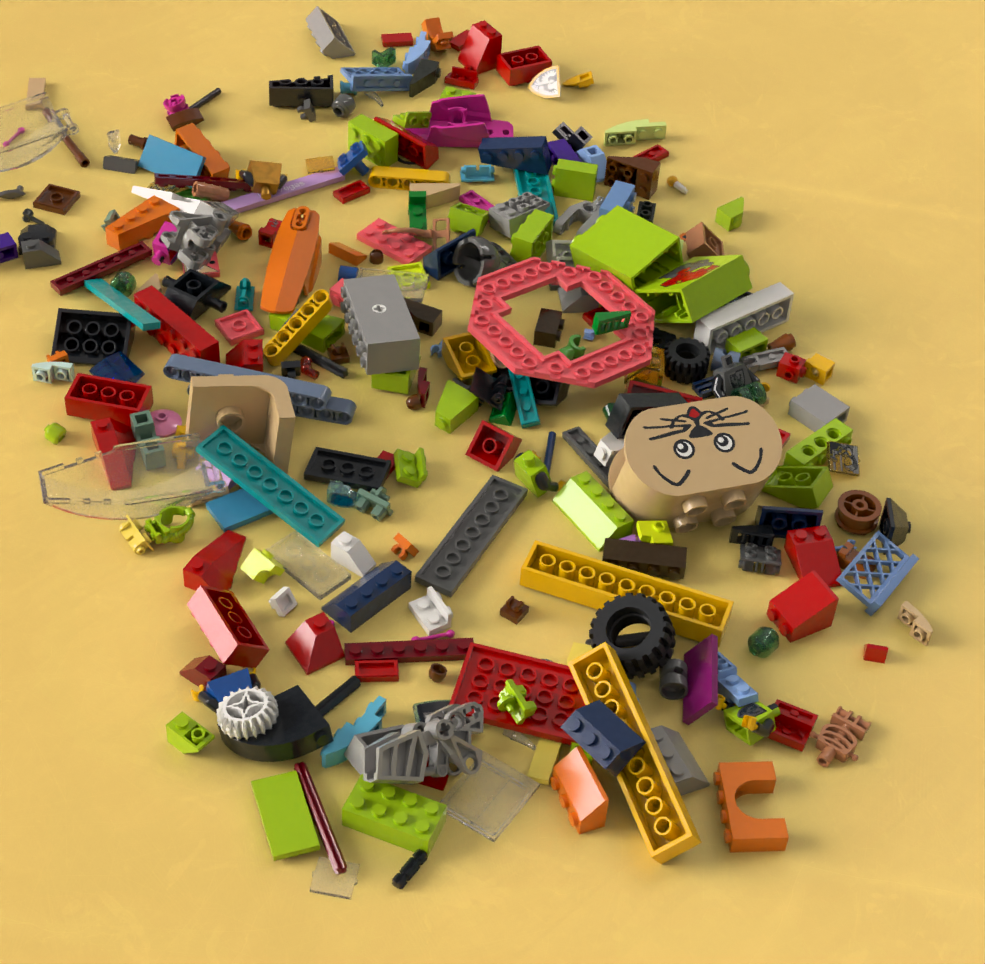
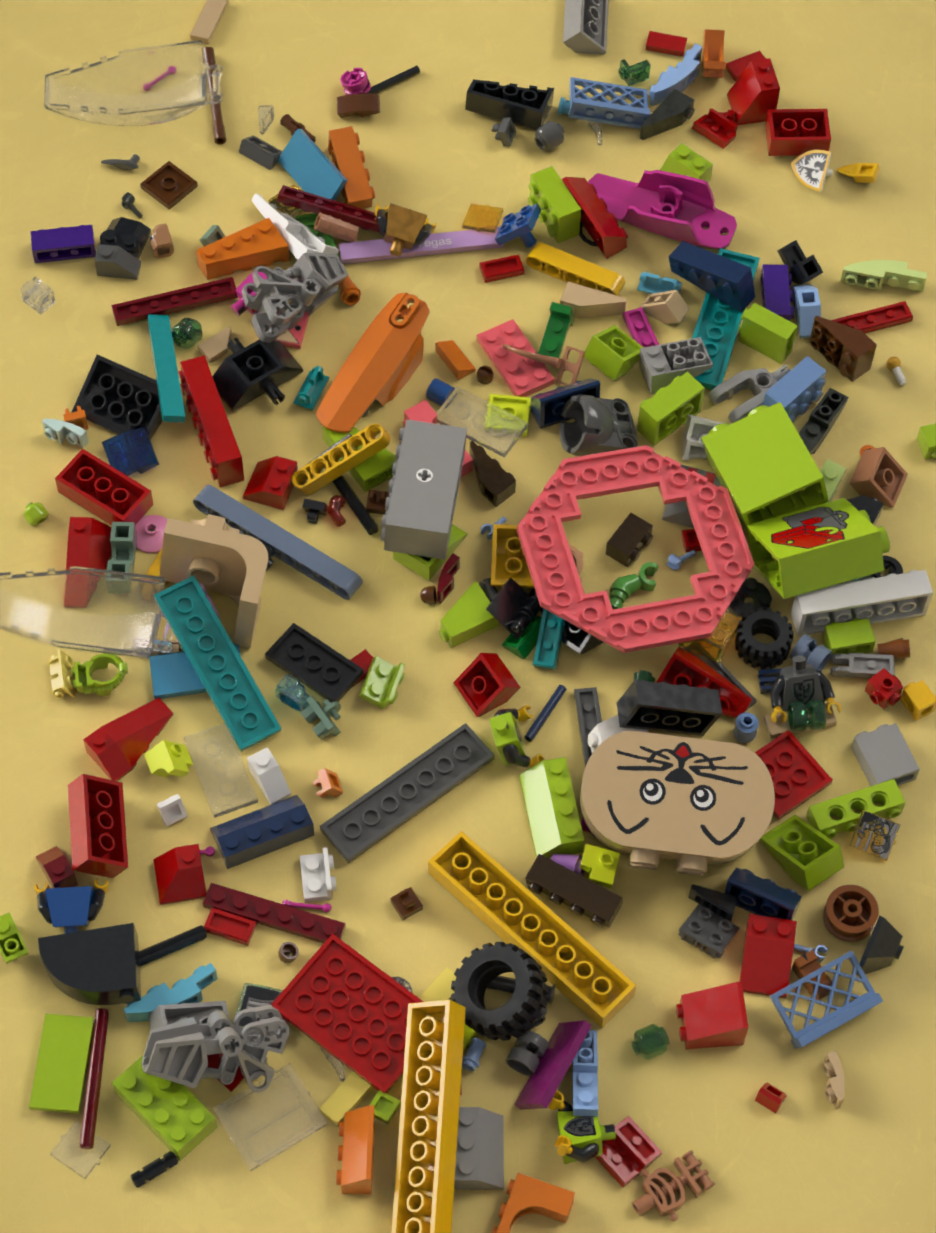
camera: 25 degrees right, 15 degrees up
(71, 232) = (161, 241): none -> medium nougat rock
(239, 327) = (288, 428): coral tile -> none
(247, 712) = (68, 948): white gear -> none
(269, 232) = (377, 303): red leg -> none
(301, 392) = (254, 517): sand blue beam -> none
(413, 119) = (614, 186): lime bracket -> none
(490, 184) = (666, 306): none -> tan slope
(513, 700) = (334, 1025): lime hips -> none
(603, 736) = (399, 1105): dark blue slope -> none
(605, 321) = (682, 570): green slope -> none

